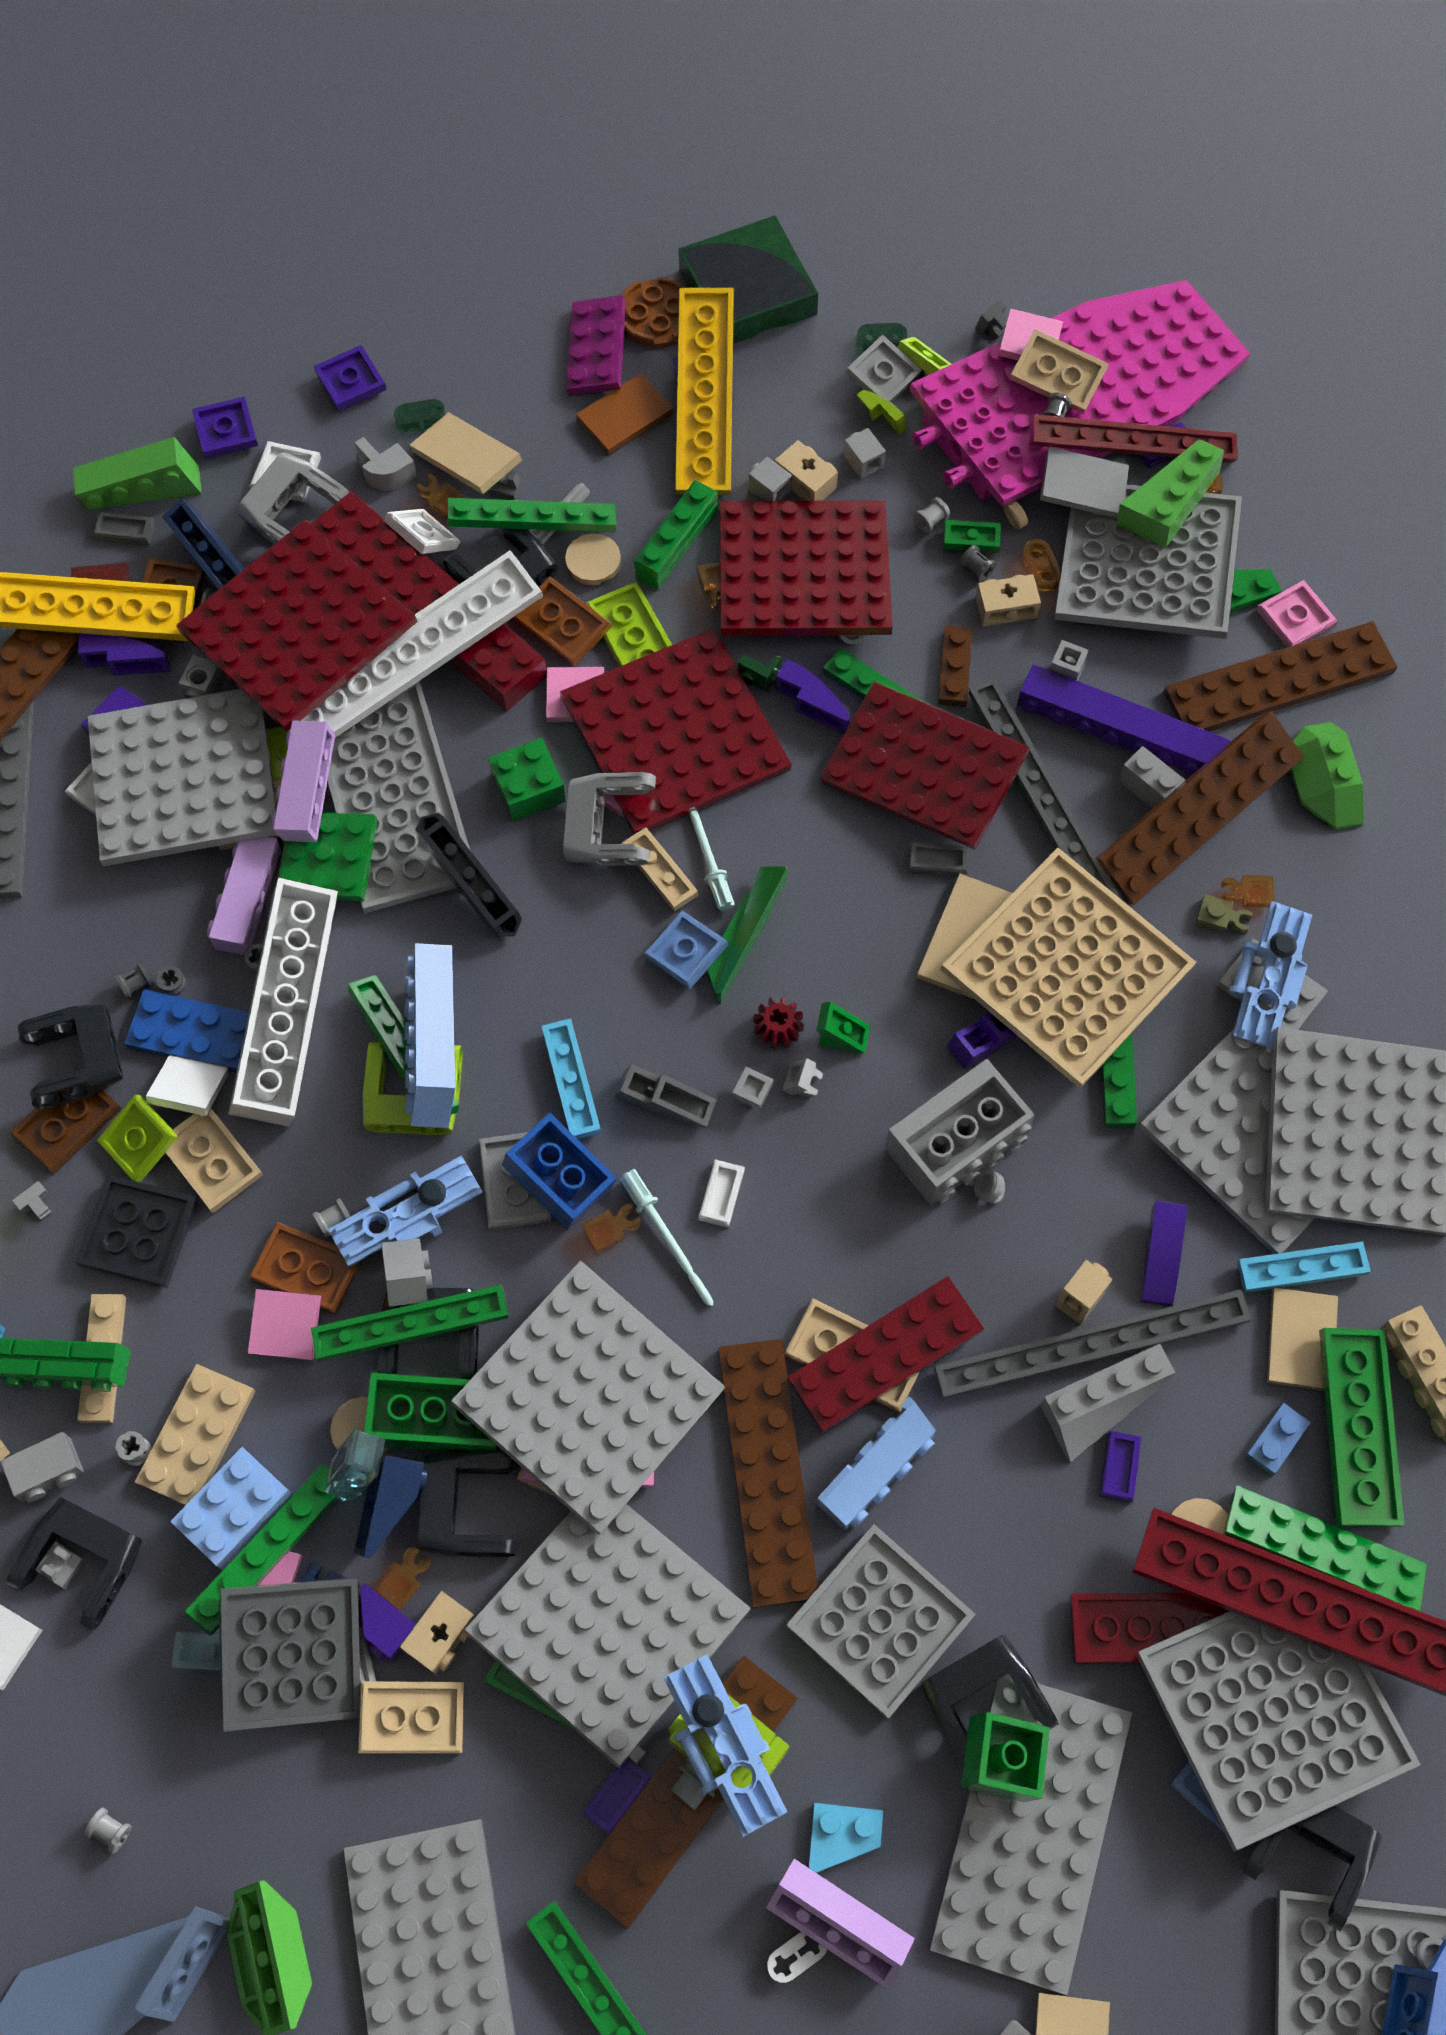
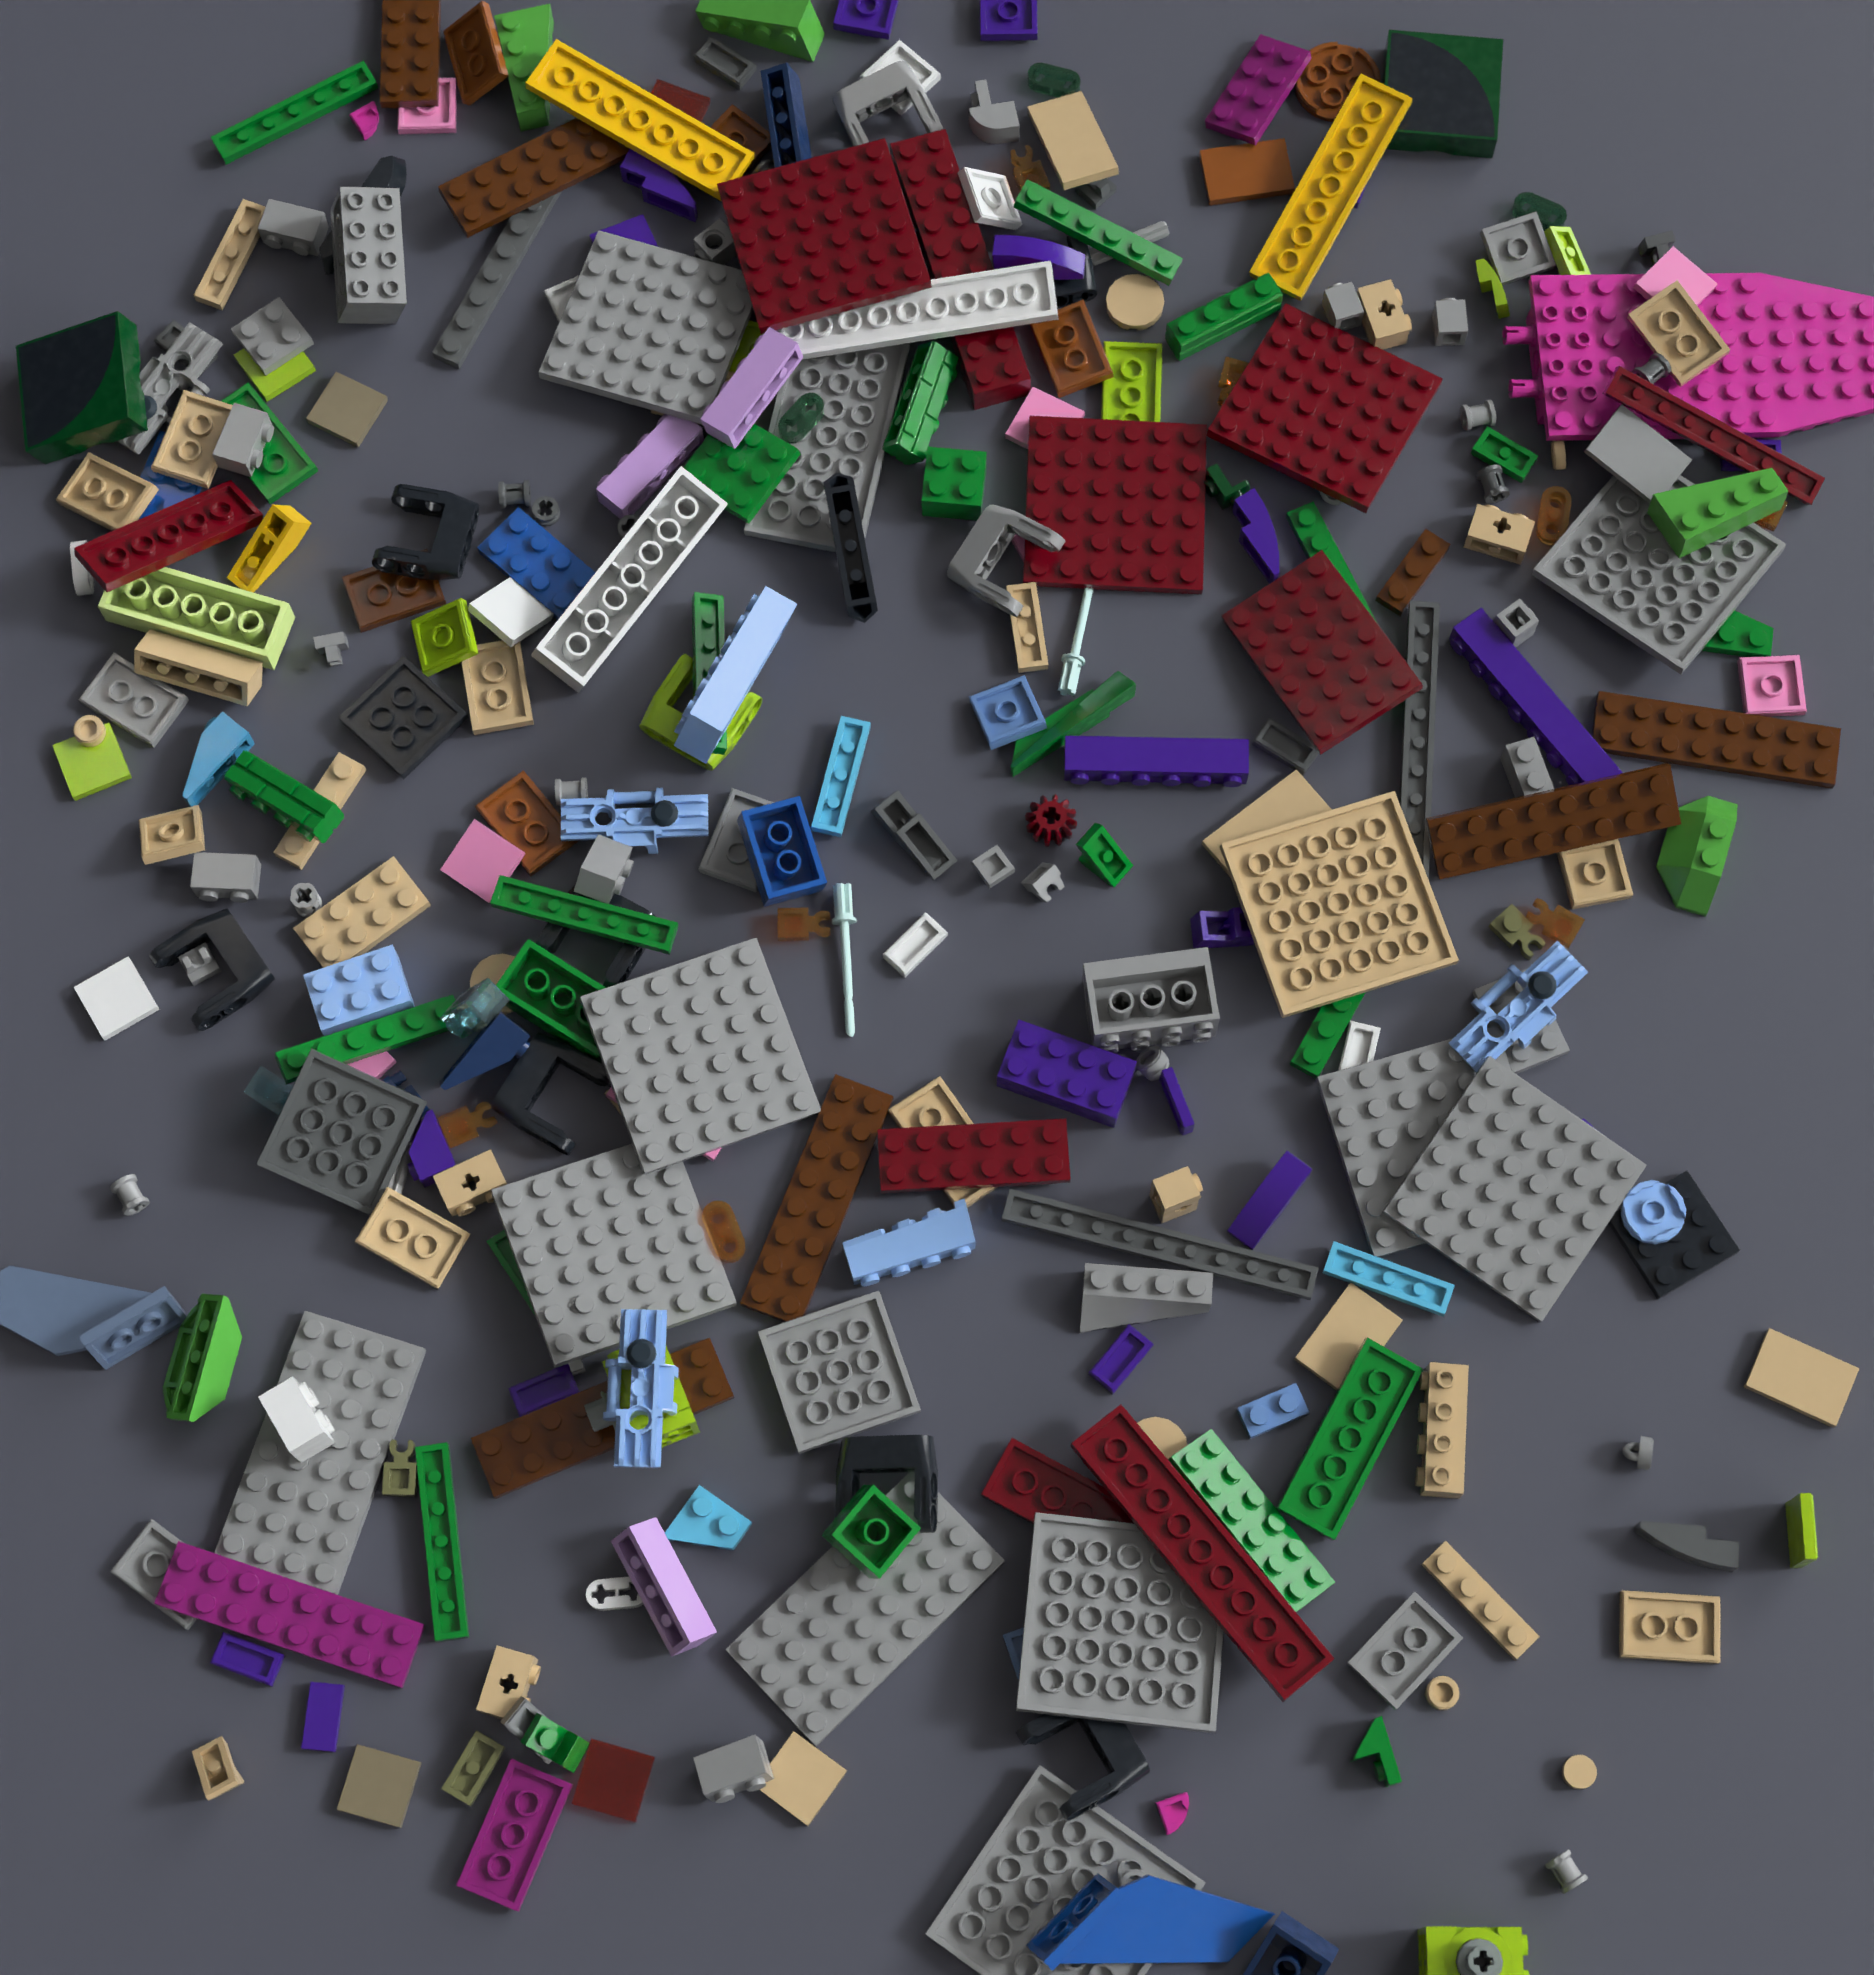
camera: 30 degrees right, 5 degrees up
(366, 789) = (796, 414): none -> clear green beam
(399, 1965) = (296, 1419): none -> white brick
(459, 726) = (921, 403): none -> green brick
(475, 557) = (1022, 250): none -> dark purple slope
(527, 1959) = (401, 1475): none -> olive plate
(702, 1546) = (724, 1232): none -> clear orange plate
(837, 925) = (1156, 760): none -> dark purple brick
(923, 1236) = (1066, 1073): none -> dark purple brick
(1032, 1209) = (1176, 1101): none -> dark purple tile
(1153, 1080) = (1359, 1045): none -> white tile
(1255, 836) = (1595, 874): none -> tan tile
(1419, 1862) = (1173, 1811): none -> dark pink tile

